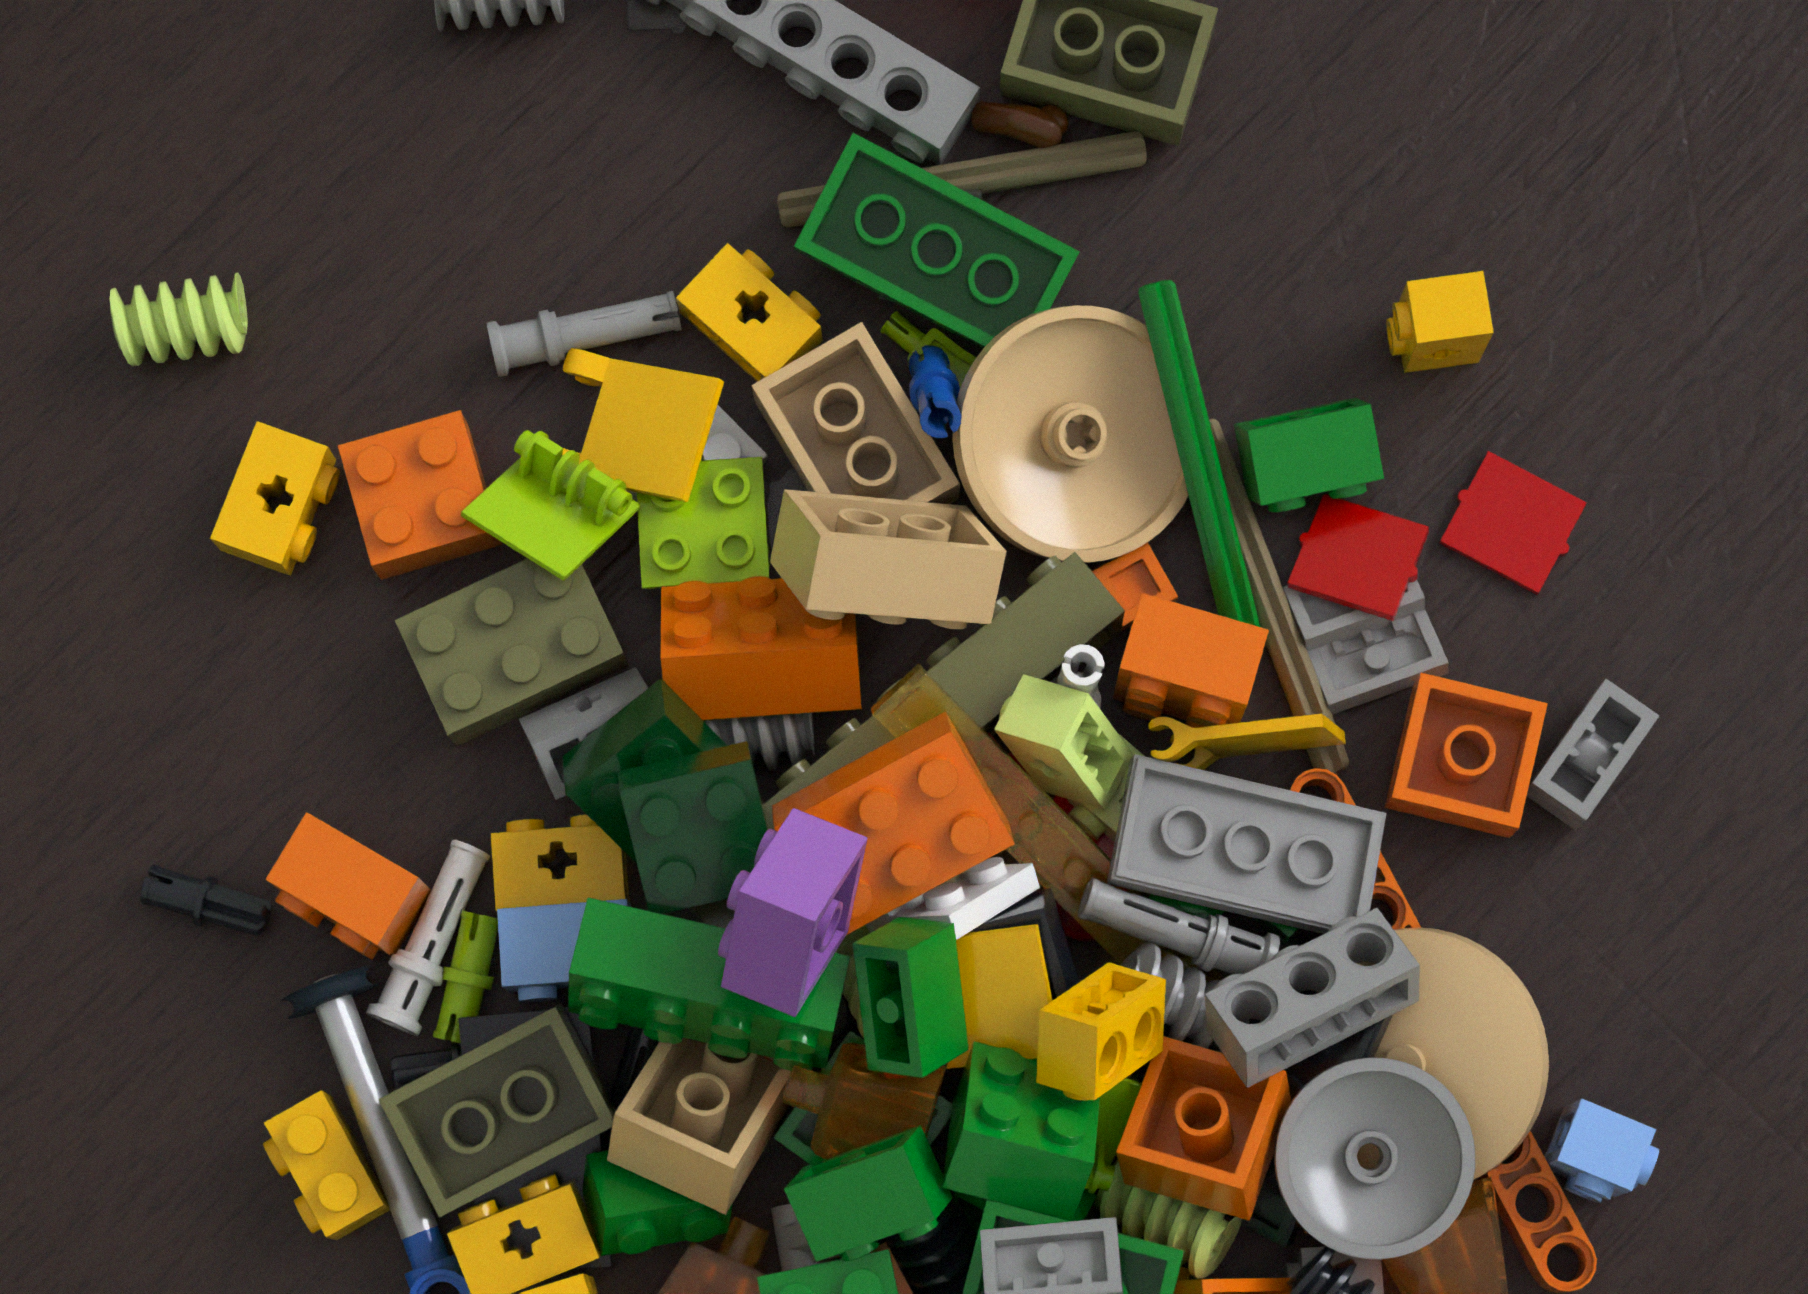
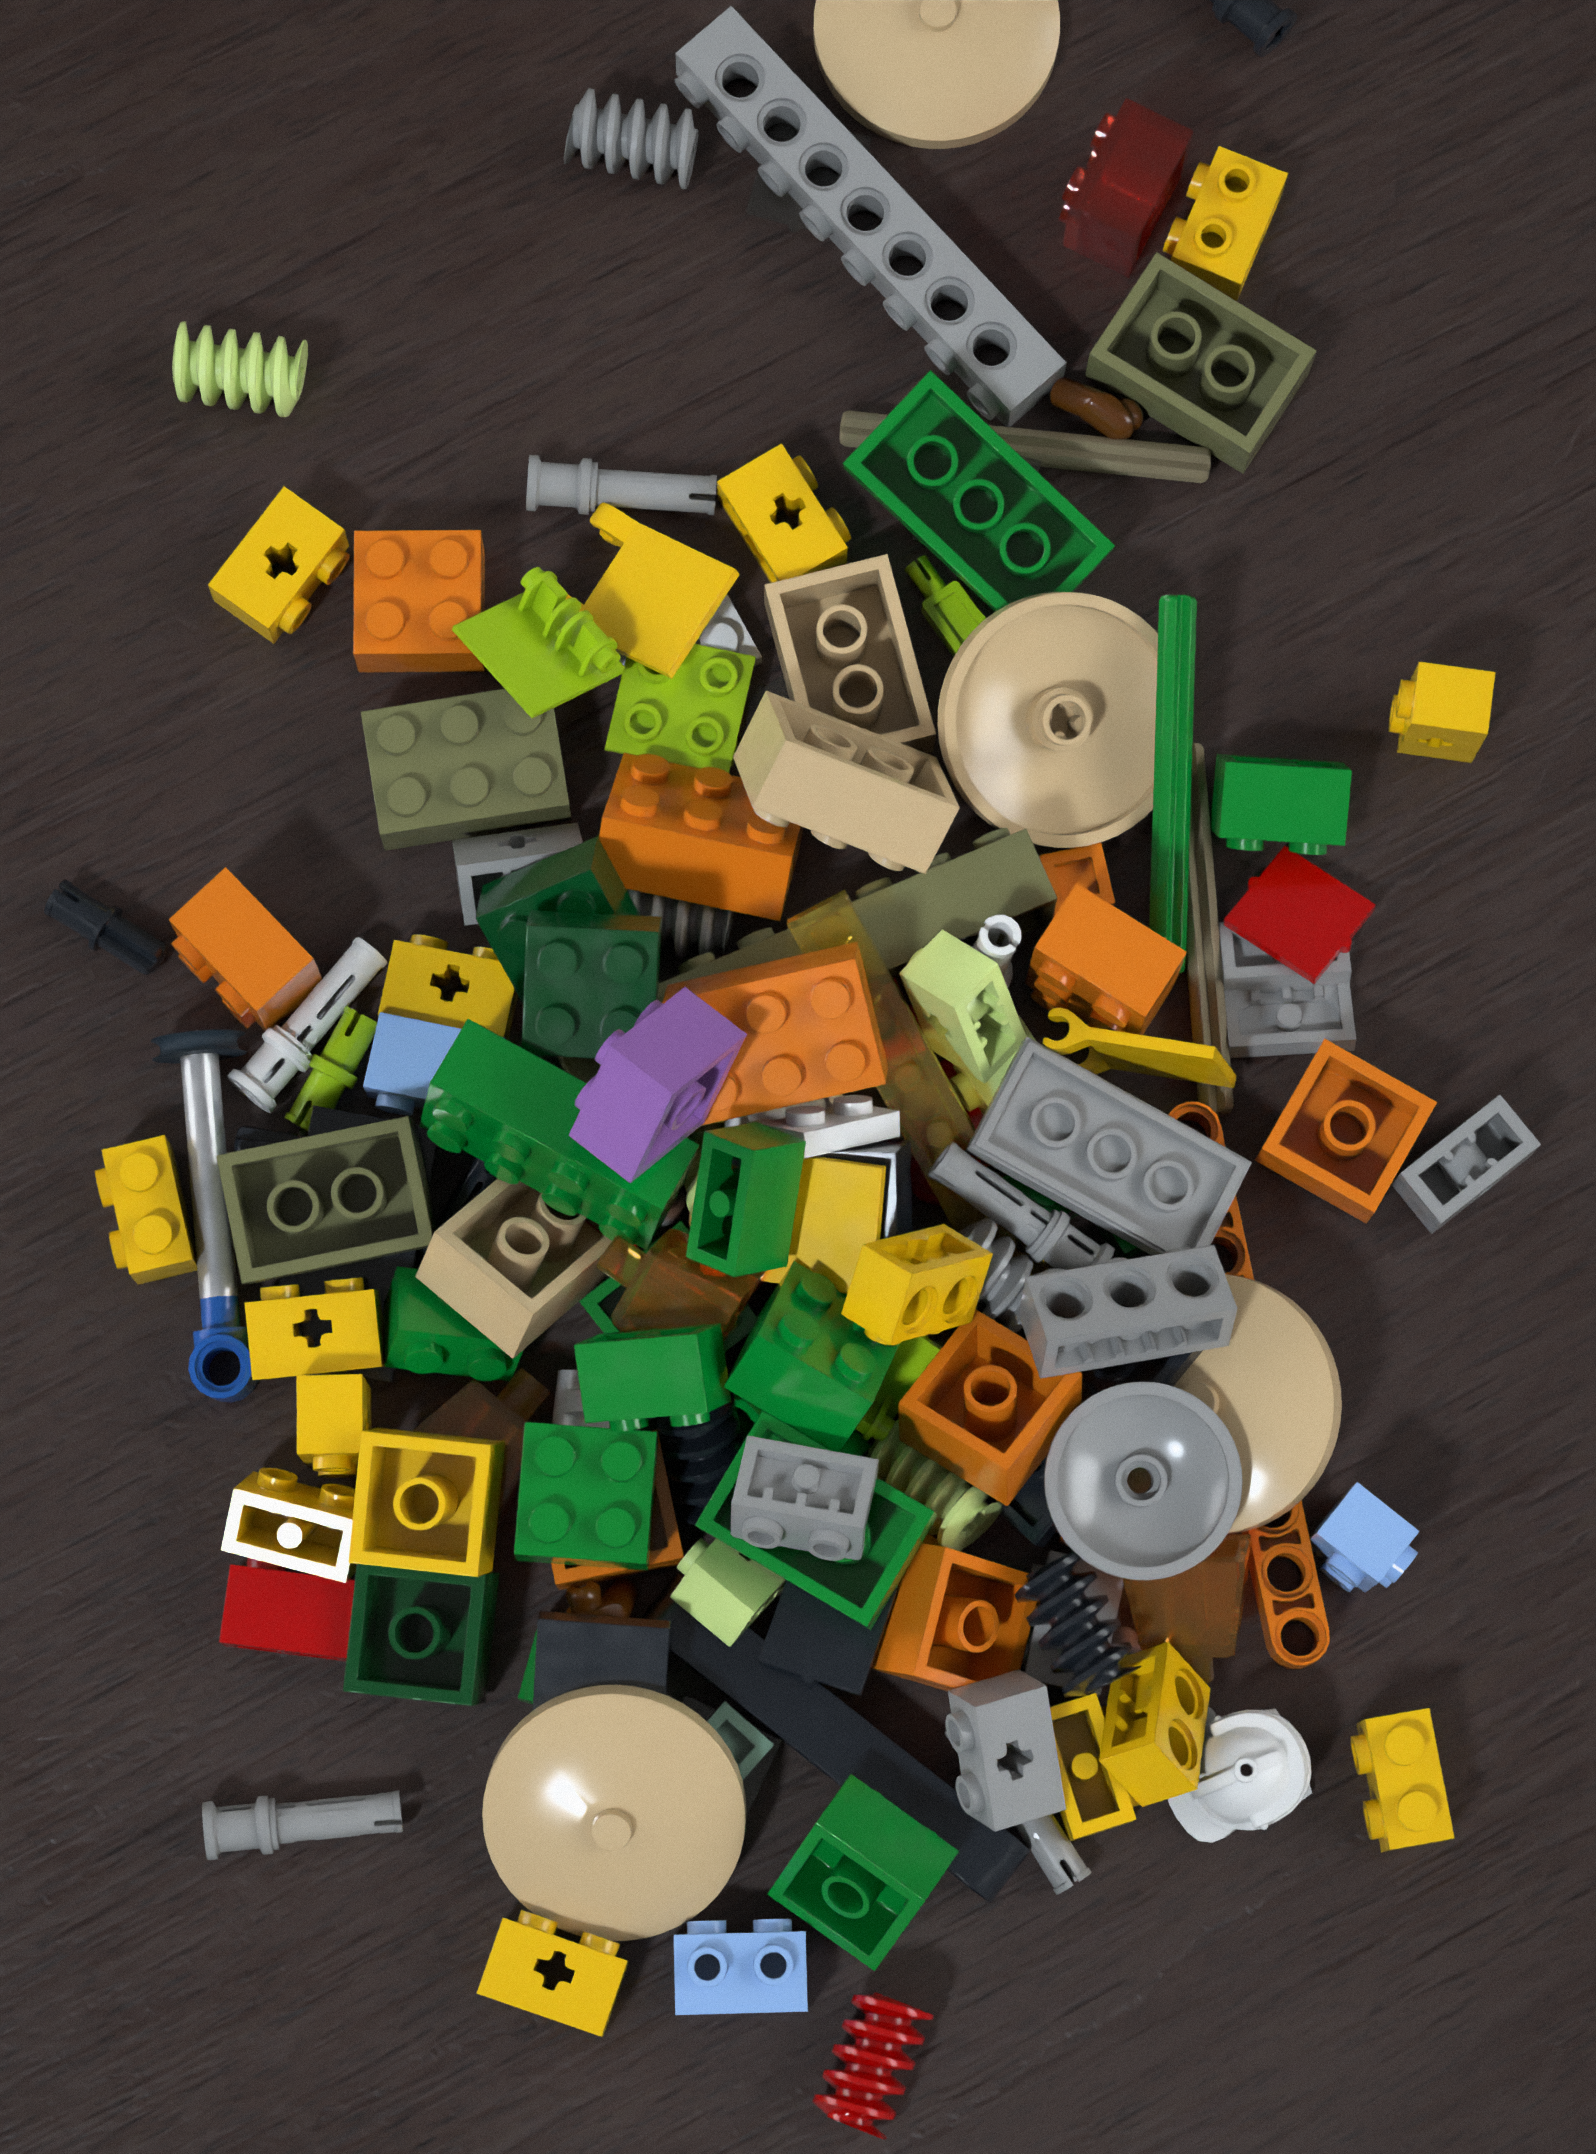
camera: 10 degrees right, 0 degrees up
(934, 391) = (937, 640): blue pin -> none
(1512, 523) = (1458, 925): red piece -> none

